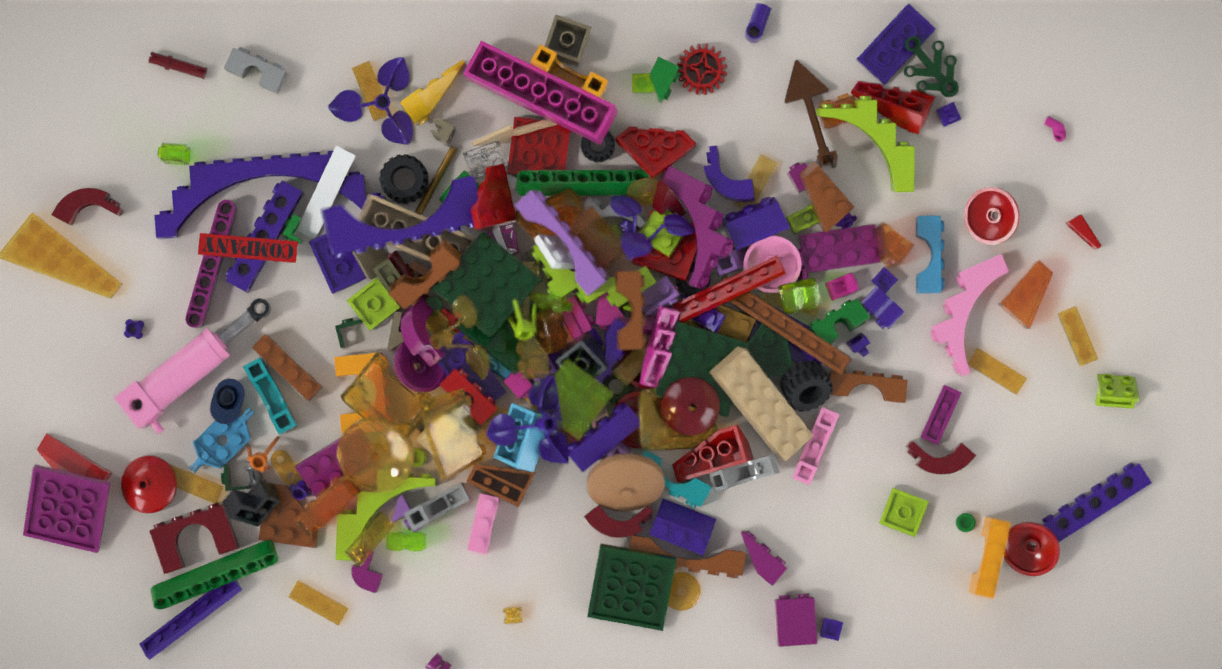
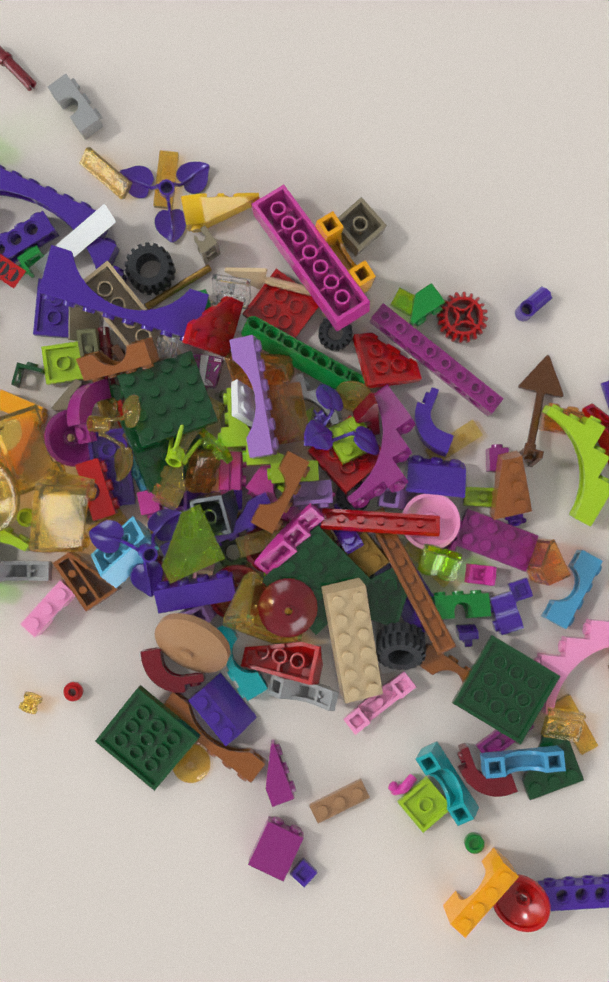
camera: 25 degrees right, 0 degrees up
(315, 115) = (105, 173): none -> clear yellow tile
(461, 240) = (167, 347): none -> clear plate
(548, 590) = (78, 688): none -> red plate
(699, 120) = (435, 360): none -> magenta brick
(828, 551) = (339, 800): none -> medium nougat plate
(877, 508) = (397, 789): none -> dark pink arm
(893, 471) = (459, 799): none -> teal arch
(916, 372) = (506, 689): none -> dark green plate
(964, 426) = (541, 759): none -> dark azure arch
(983, 376) = (563, 724): none -> clear yellow plate
(995, 417) = (541, 783): none -> dark green plate

